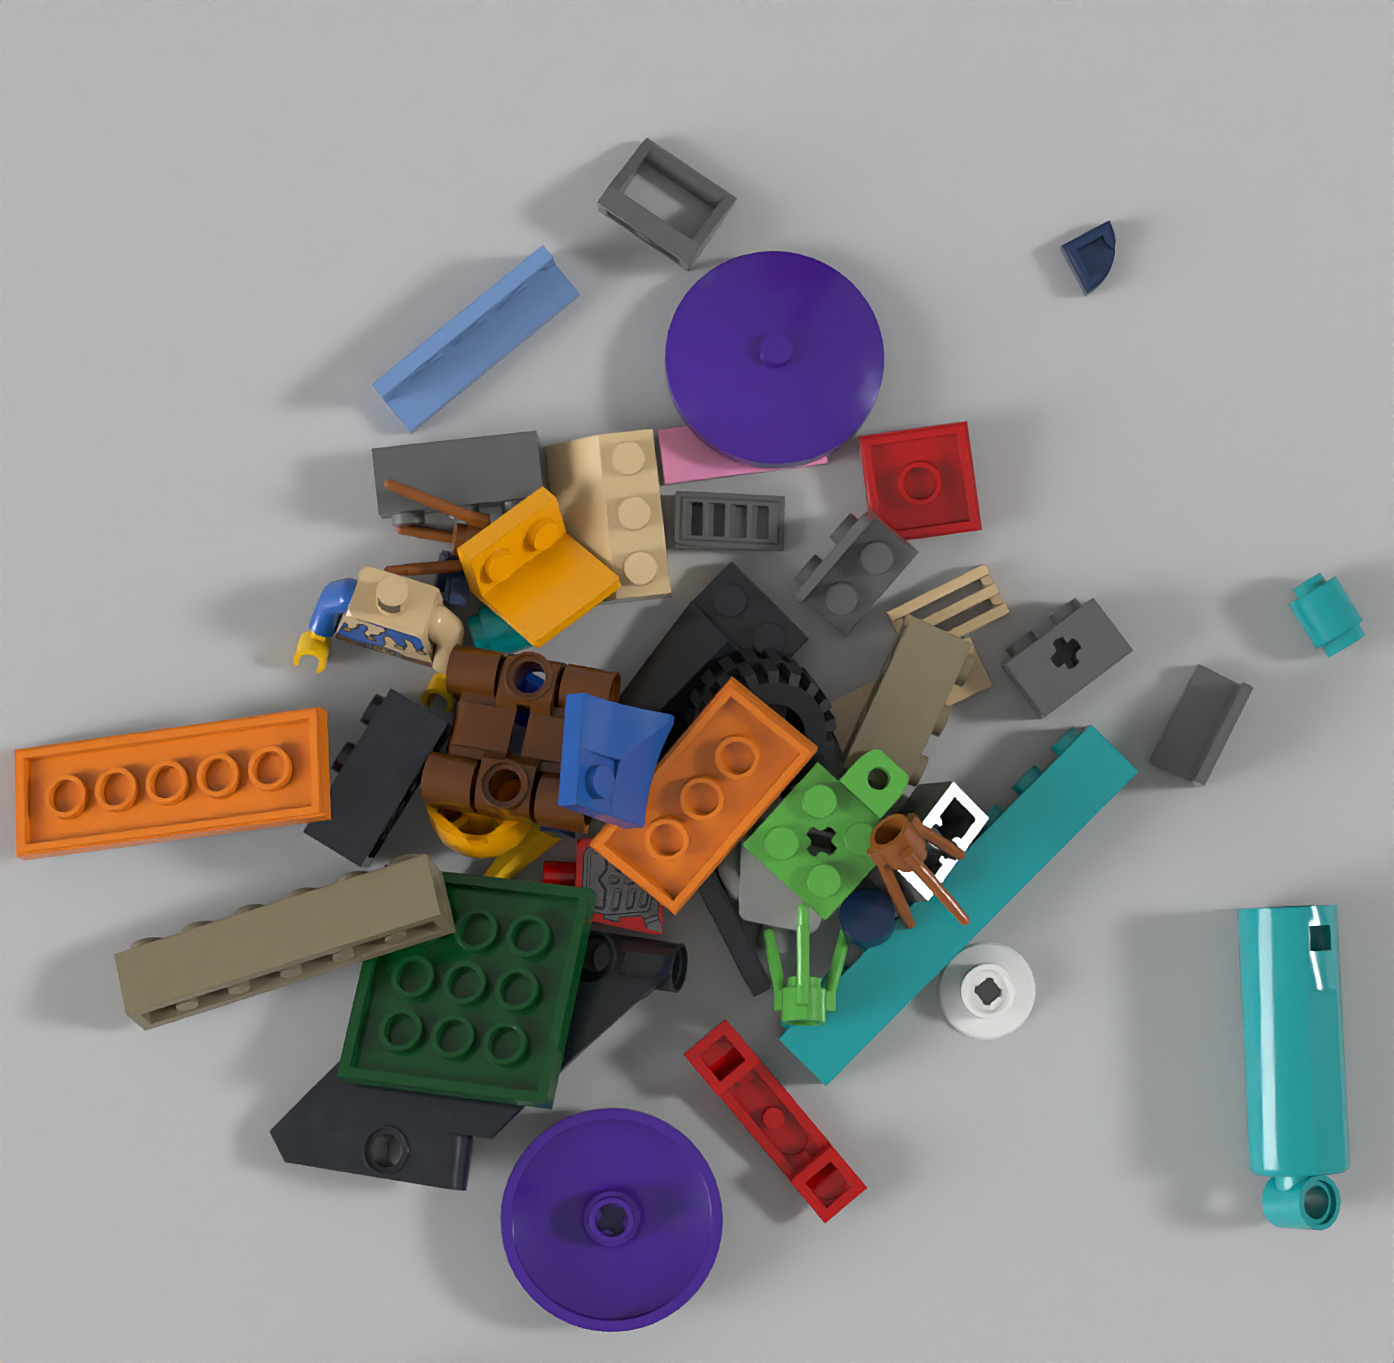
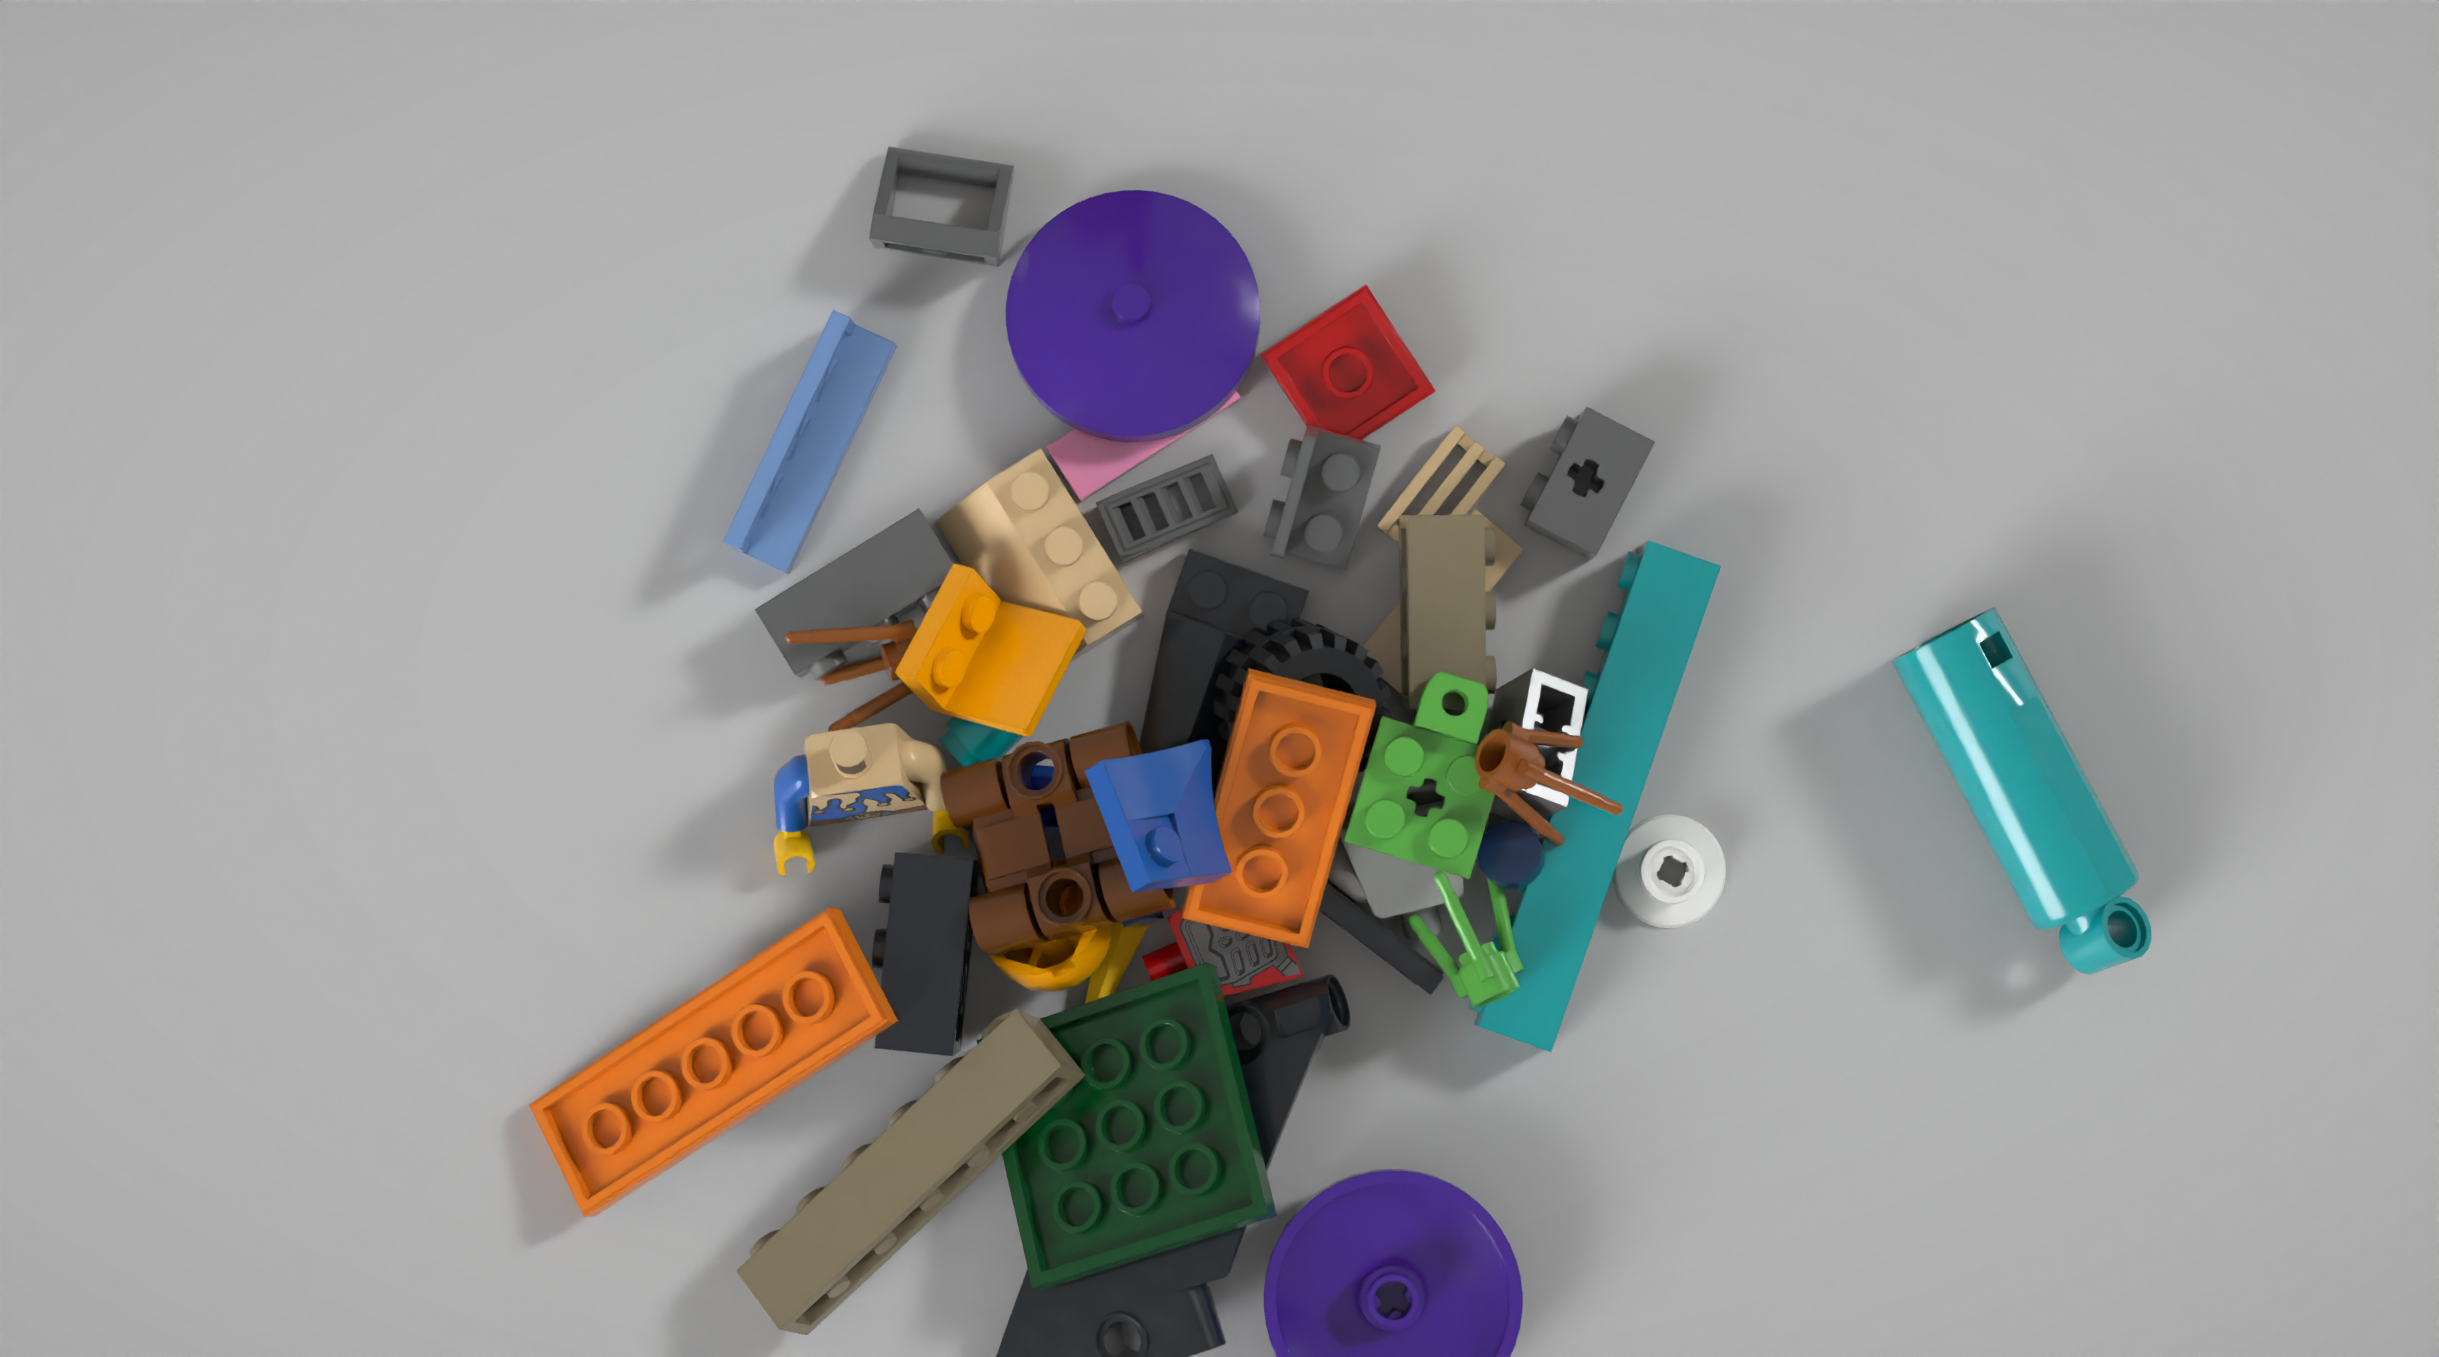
camera: 25 degrees left, 0 degrees up
(452, 585) = (907, 713): dark blue tile -> none
(775, 1120) = (1514, 1113): red slope -> none
(1091, 256) = (1413, 51): dark blue tile -> none
(1200, 726) = (1762, 488): dark grey panel -> none
(1327, 614) = (1838, 308): teal brick -> none

